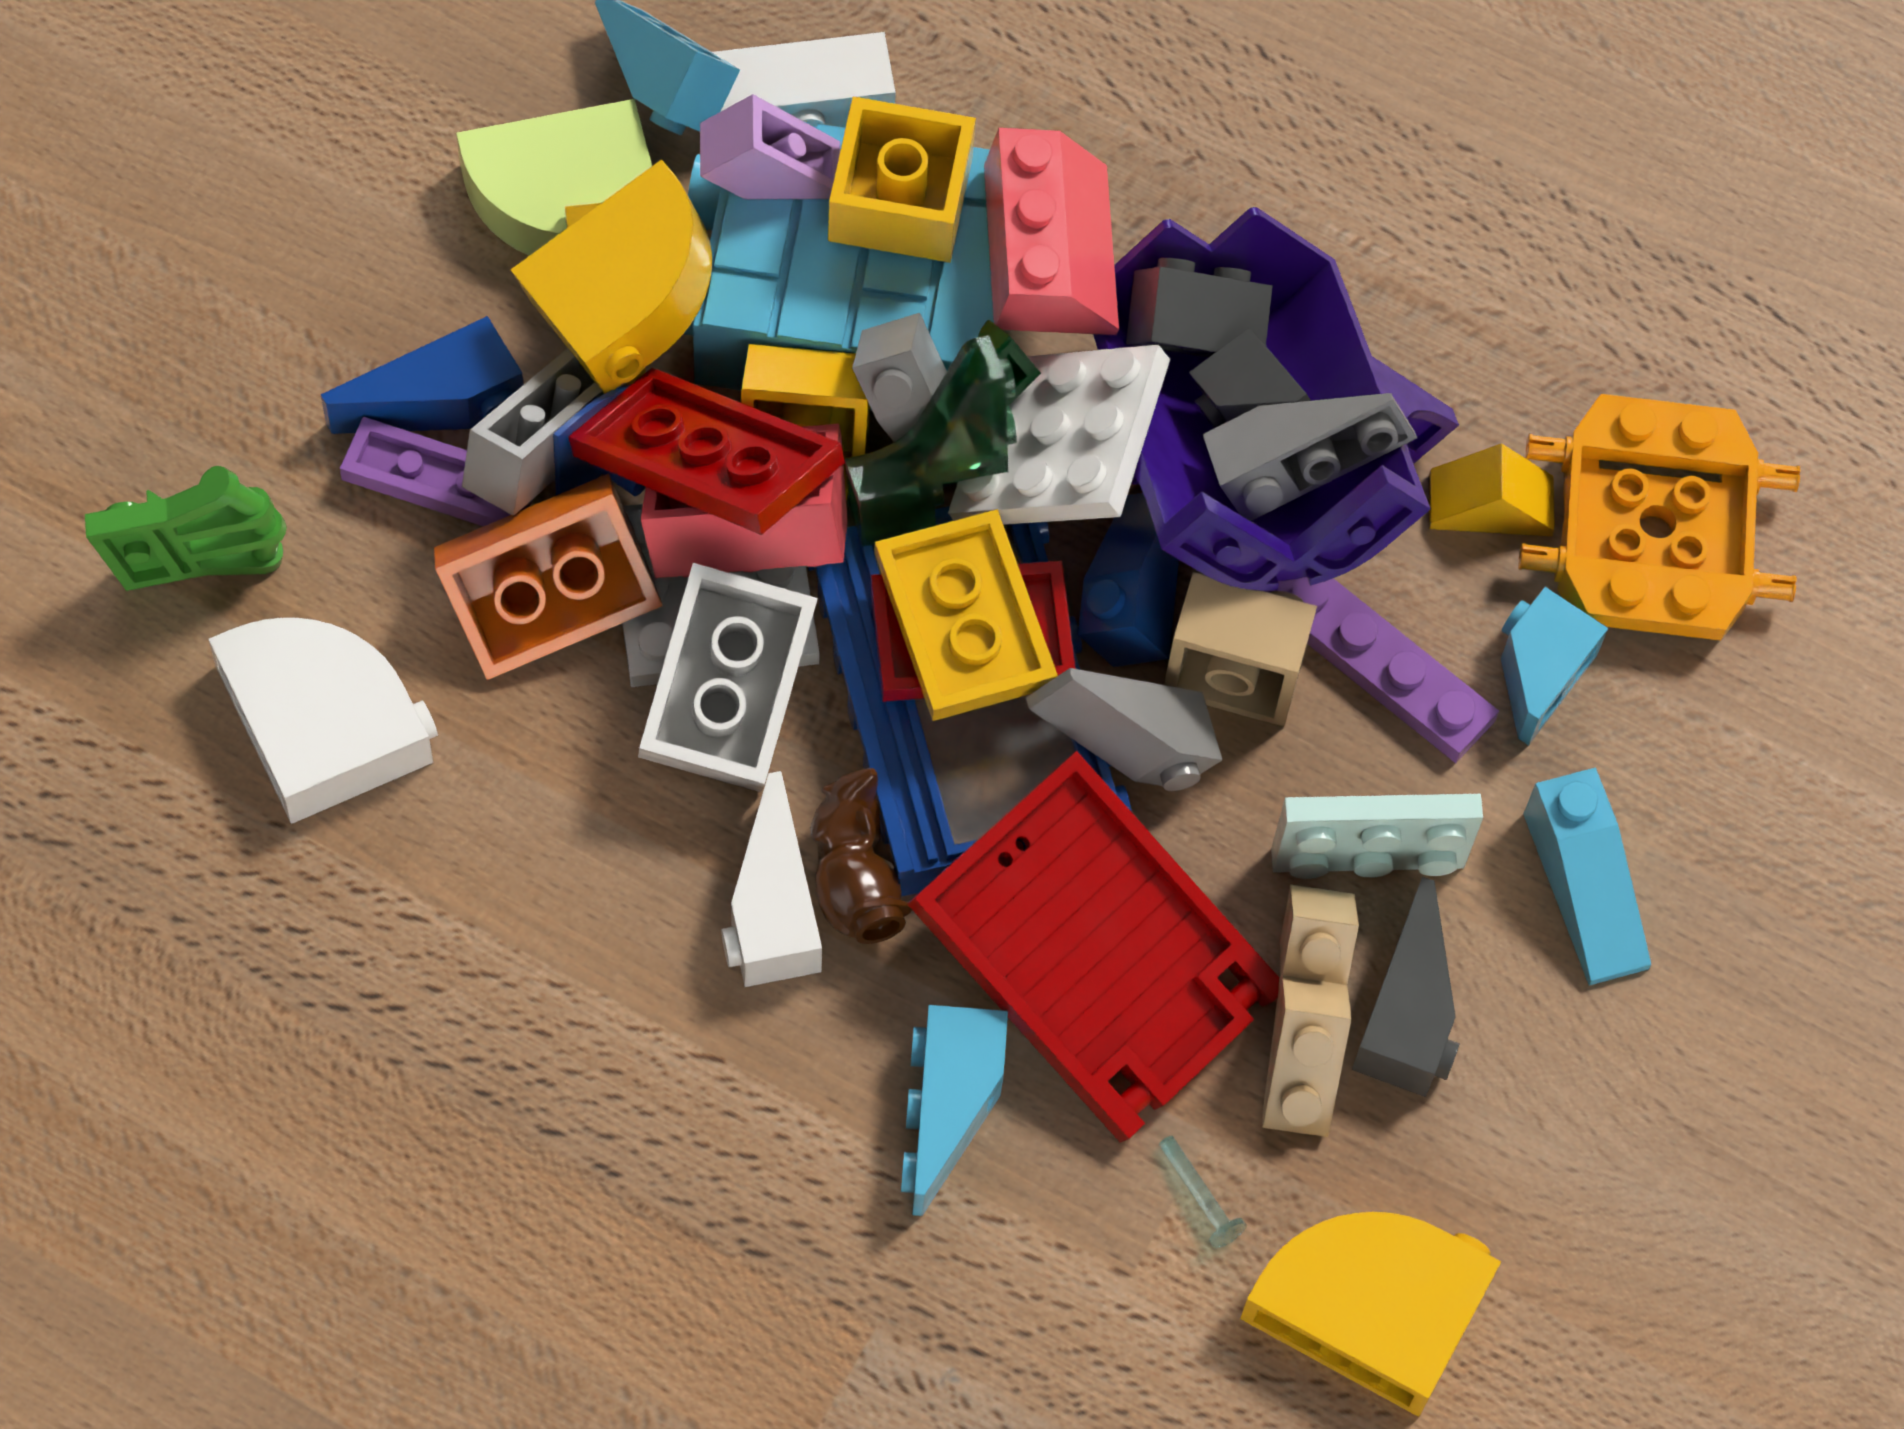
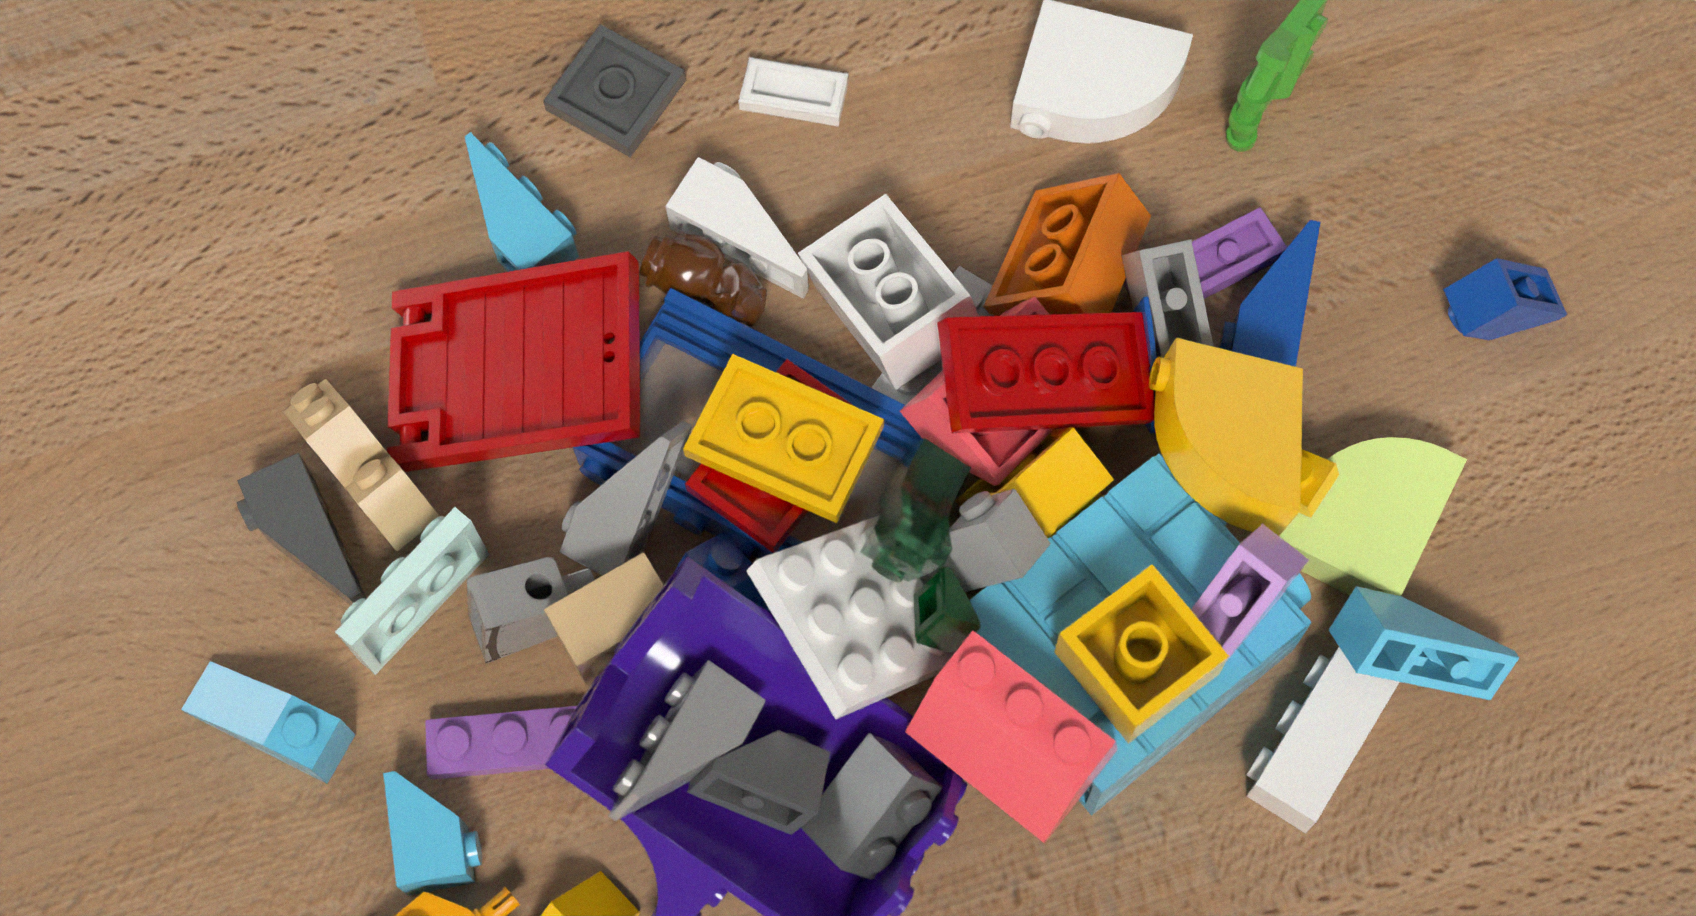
camera: 140 degrees right, 5 degrees up
(258, 219) = (1503, 300): none -> blue slope
(576, 977) = (793, 91): none -> white tile
(732, 1131) = (615, 90): none -> dark grey plate
(1226, 1230) = (290, 302): clear light blue pin -> none
(1295, 741) = (510, 605): none -> light grey torso
(1375, 1300) = (162, 339): yellow brick -> none

